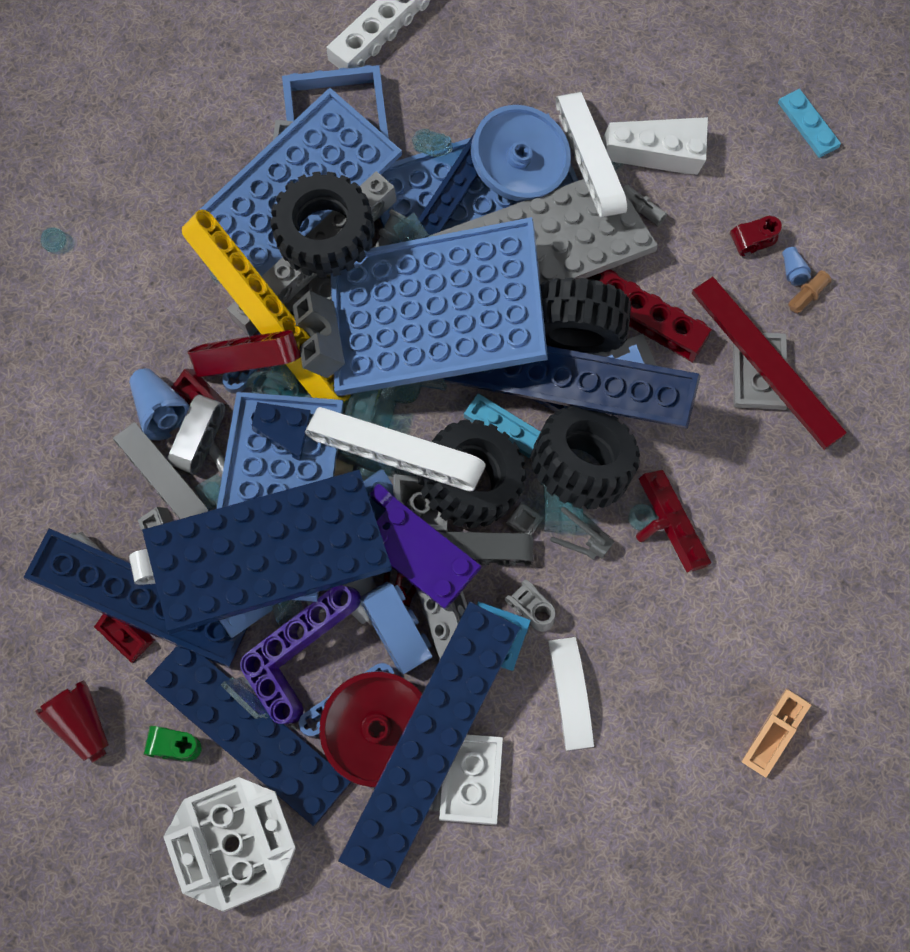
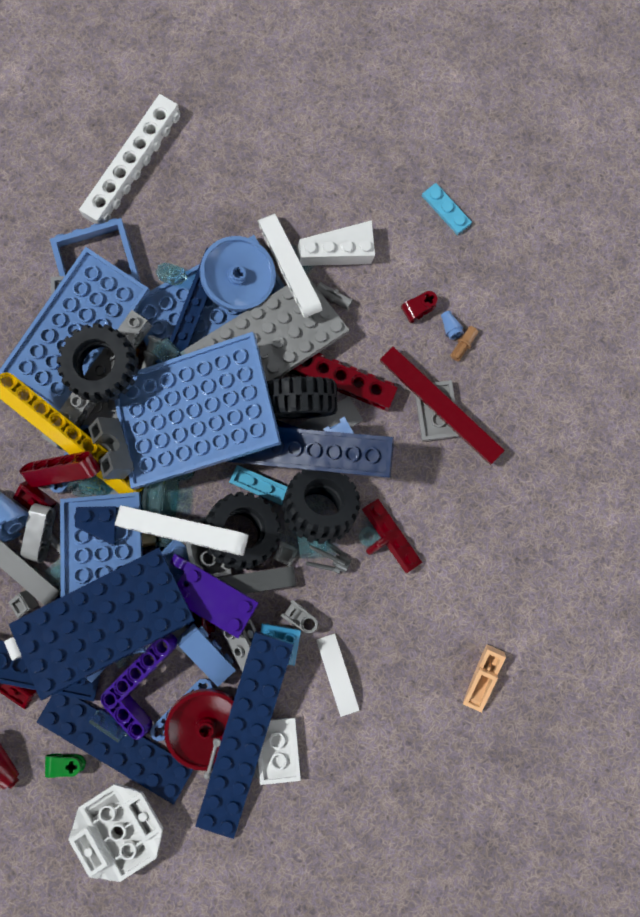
camera: 10 degrees left, 10 degrees up
(389, 748) = (216, 742): none -> light grey hinge

